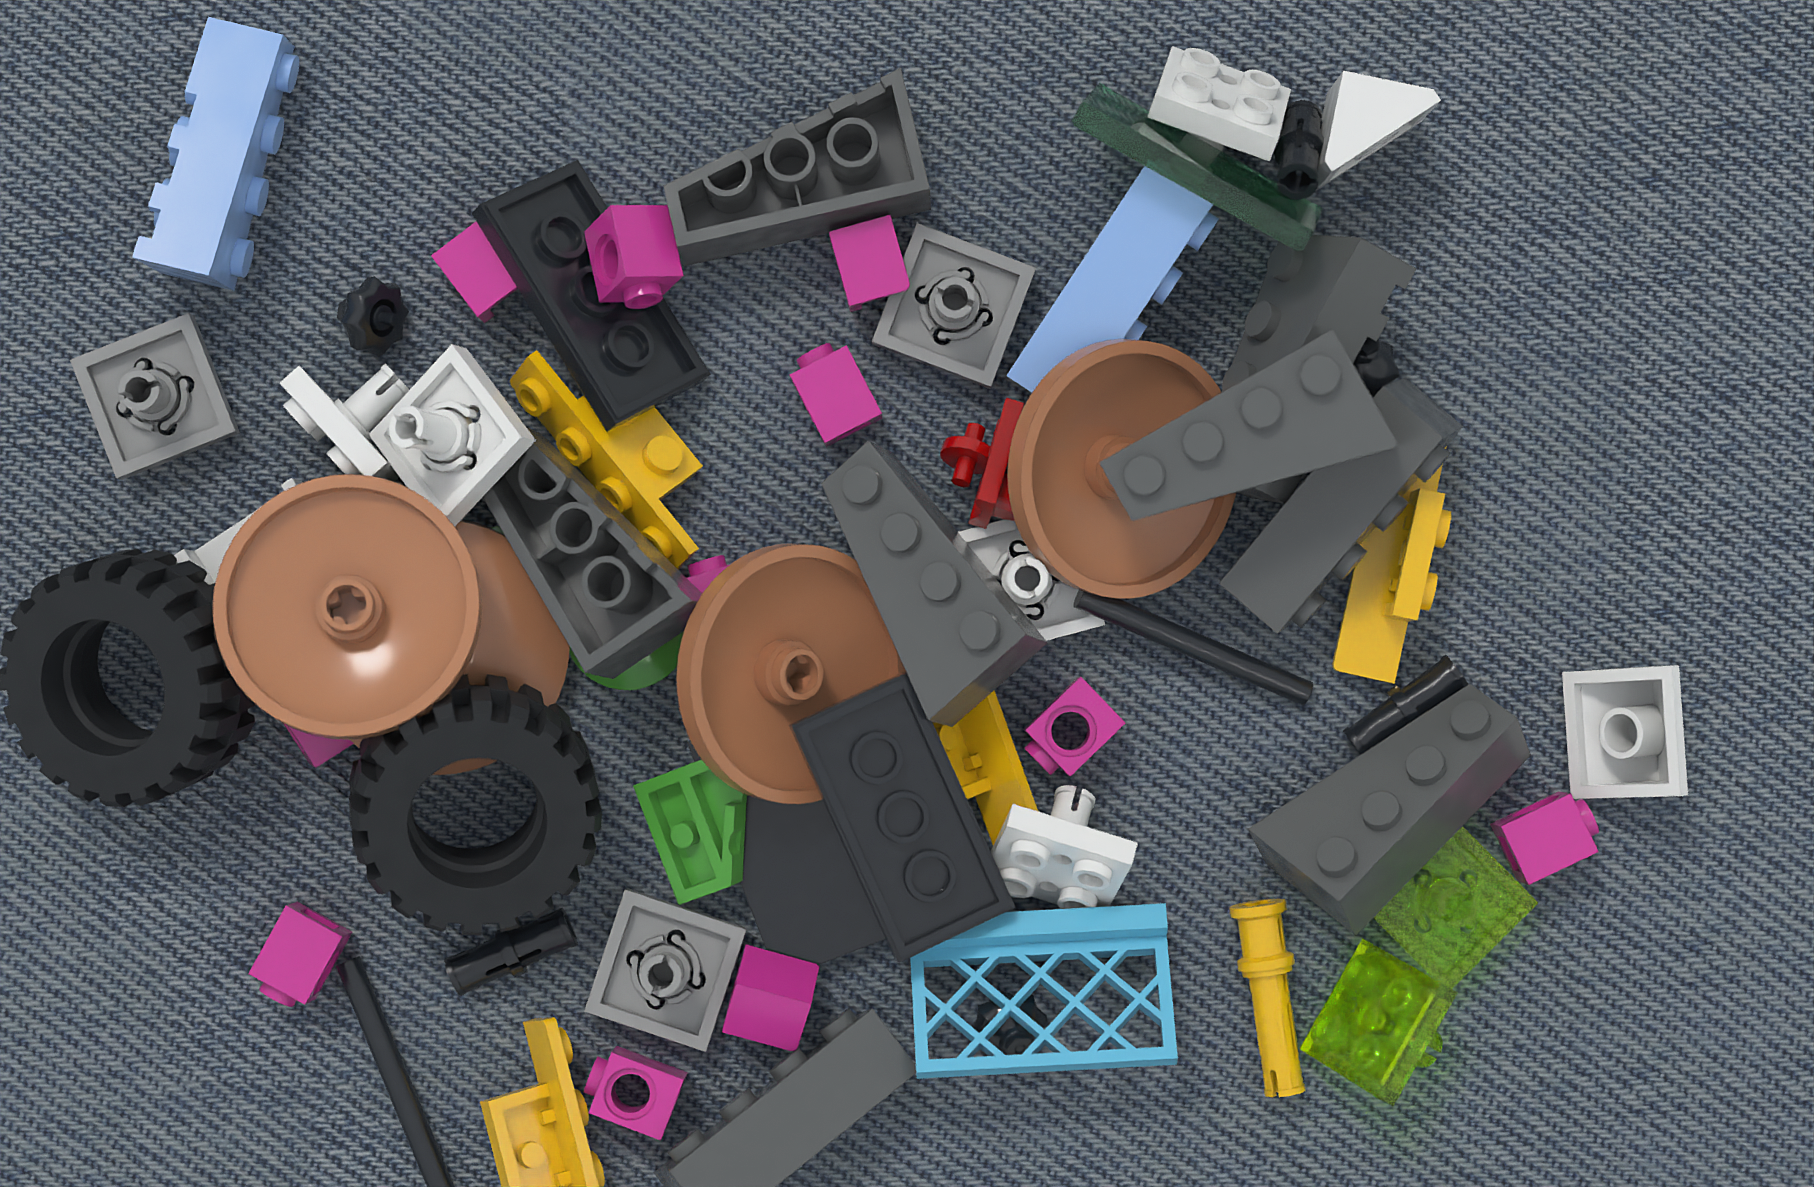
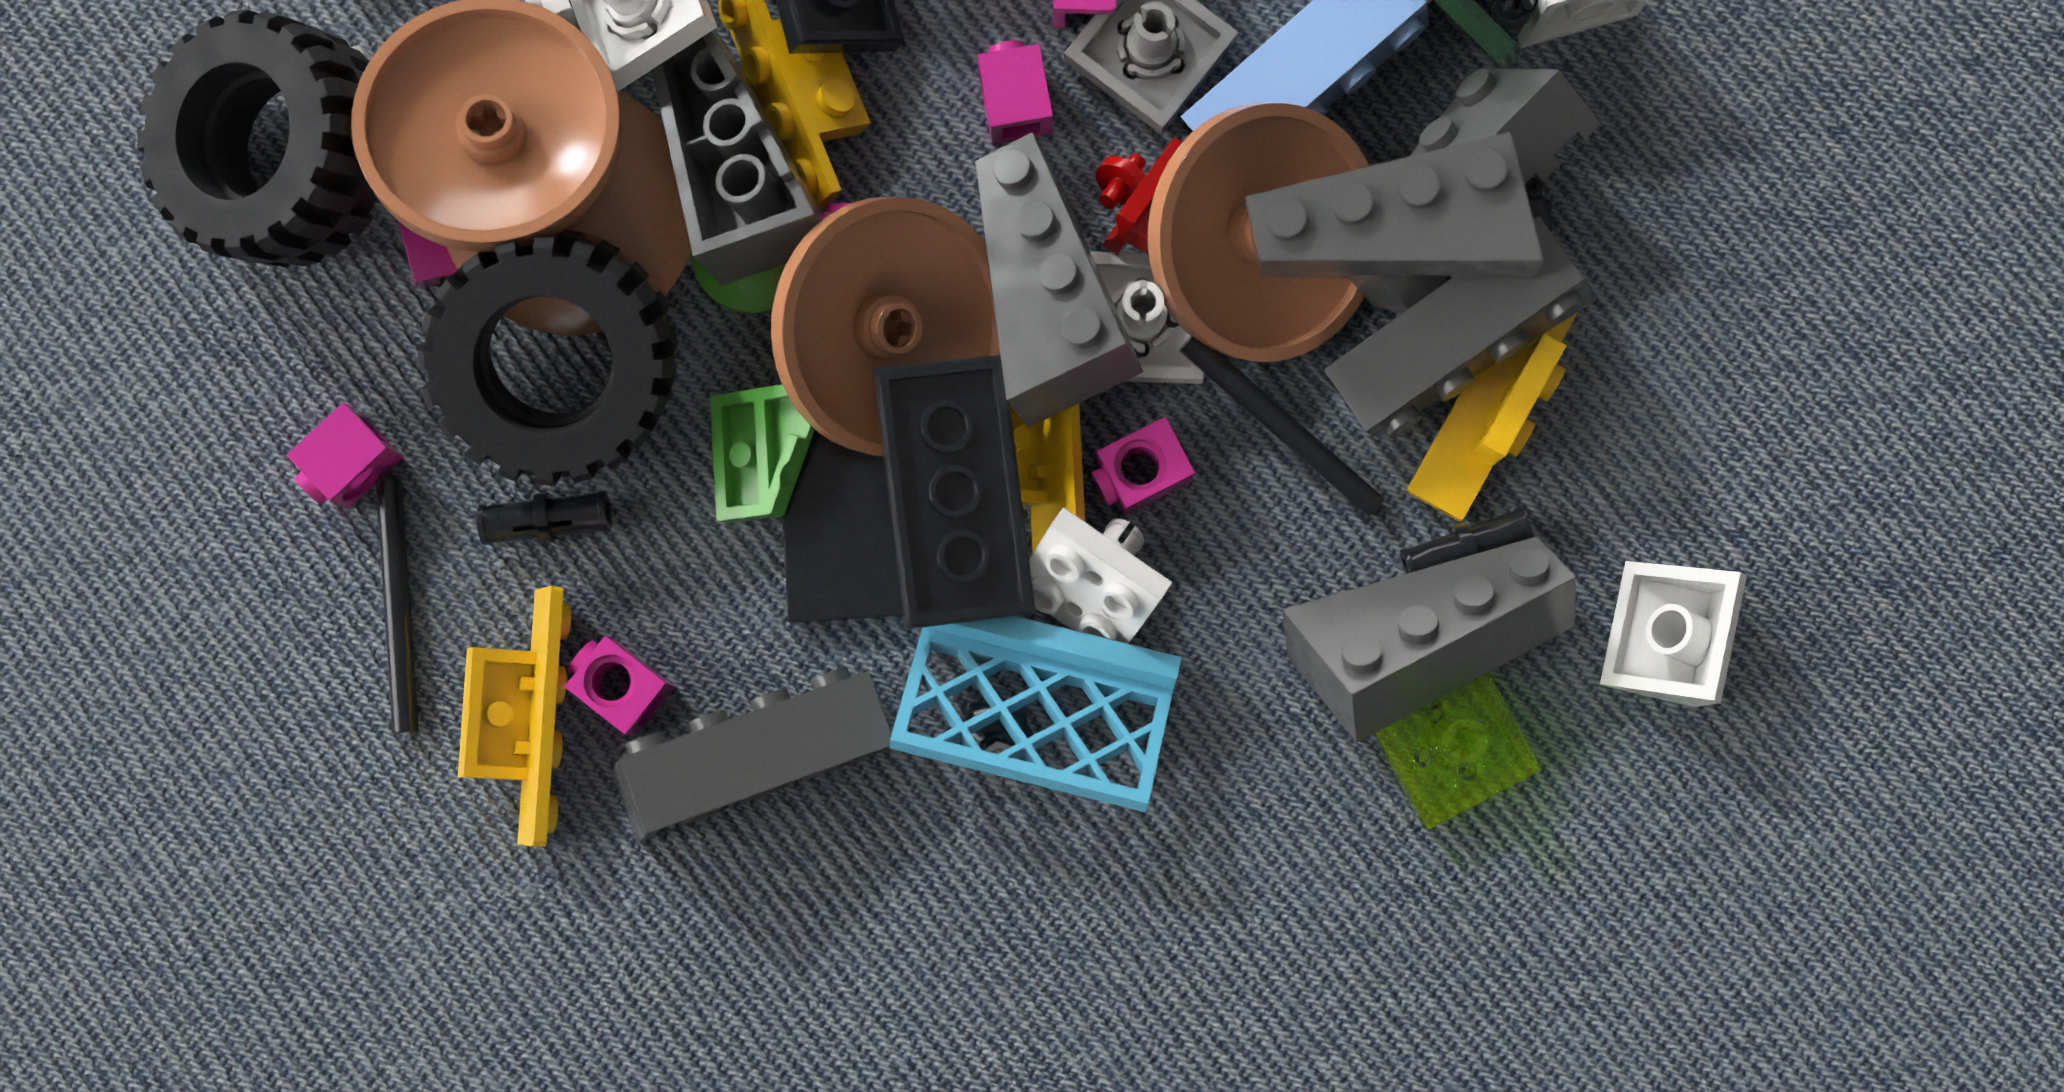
camera: 20 degrees right, 5 degrees down
(624, 990) = (680, 575): light grey plate -> none
(771, 998) = (773, 633): dark pink panel -> none
(1266, 966) = (1260, 751): yellow pin -> none
(1389, 1026) = (1355, 836): clear neon green plate -> none
(1546, 836) = (1568, 708): dark pink brick -> none

